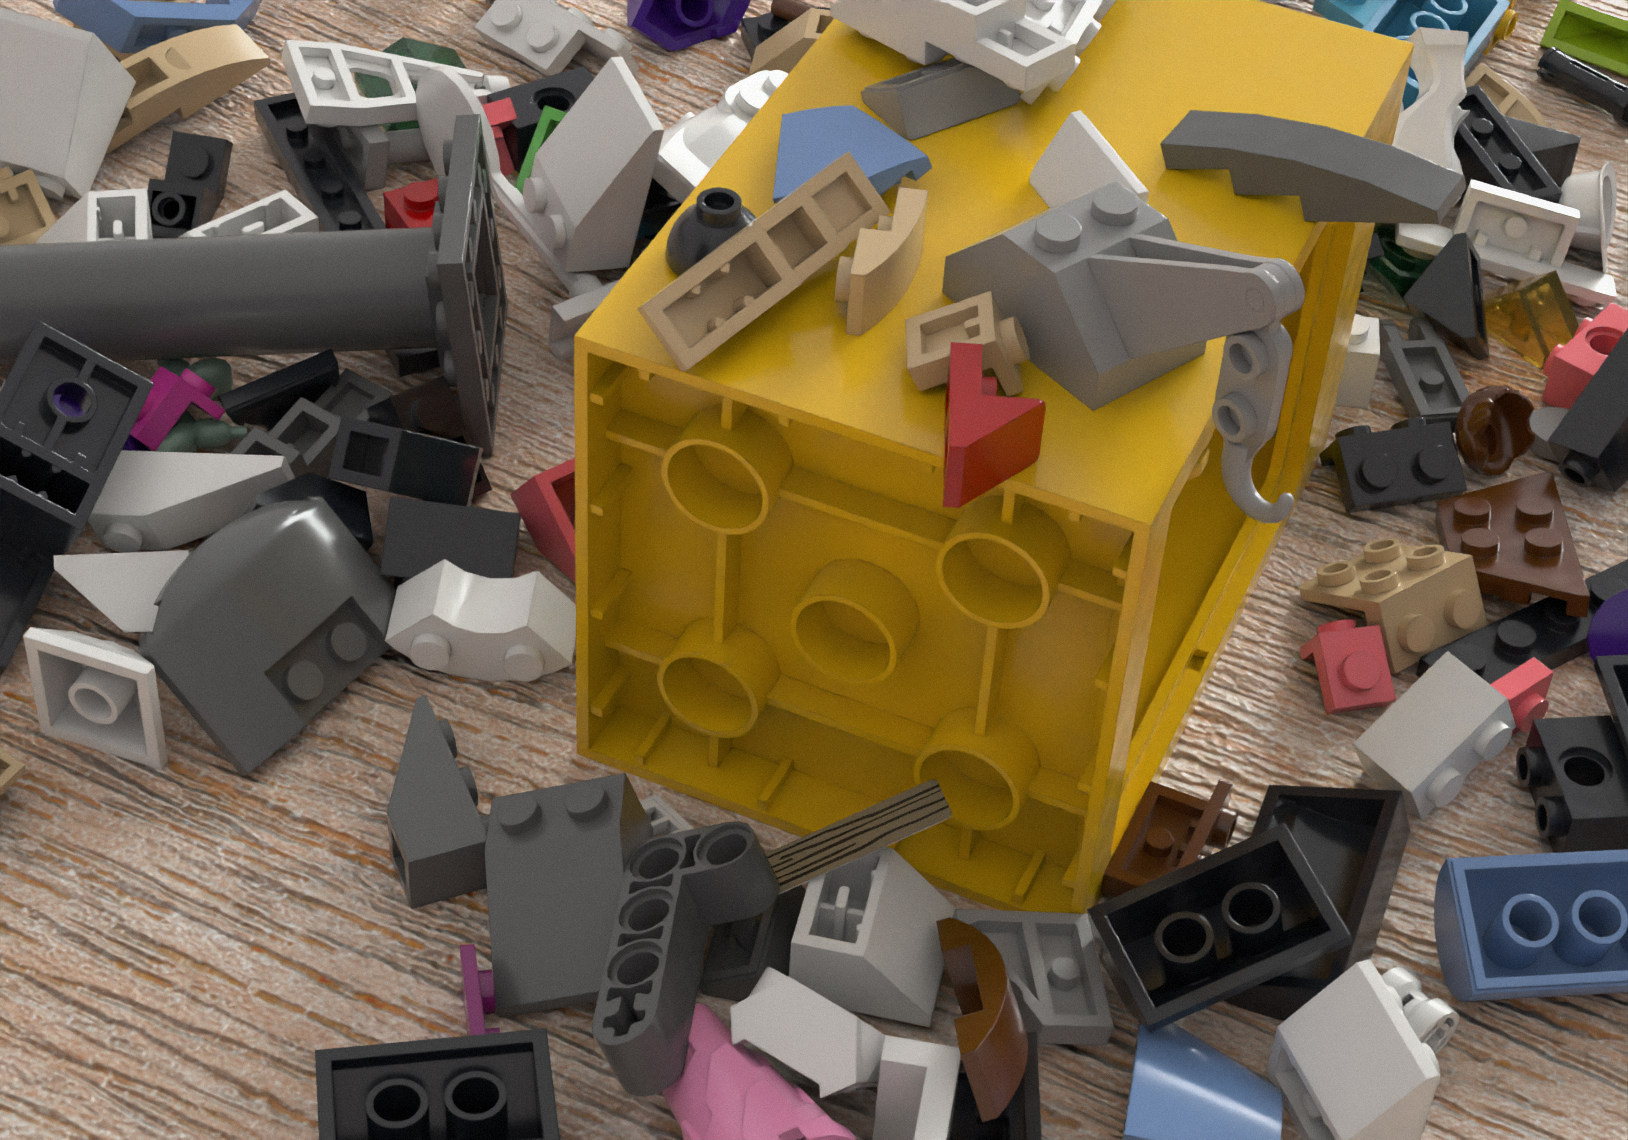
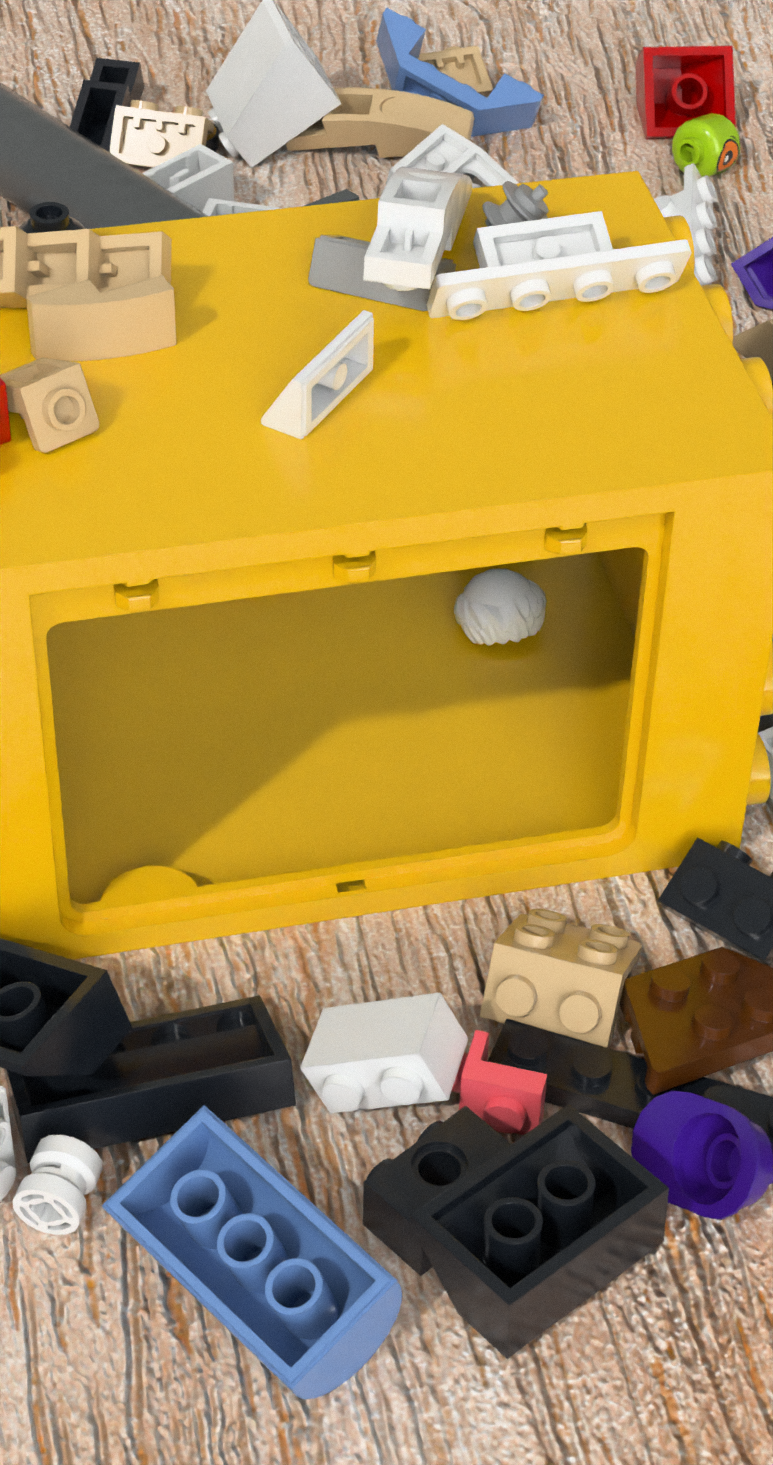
camera: 55 degrees right, 0 degrees up
(191, 185) = (319, 179): black slope -> none
(821, 135) = (223, 258): medium blue slope -> none
(1123, 302) = (145, 433): light grey slope -> none
(1167, 834) = (140, 958): reddish brown bracket -> none
(1331, 170) = (486, 465): dark grey slope -> none
(1350, 666) = (445, 967): coral bracket -> none

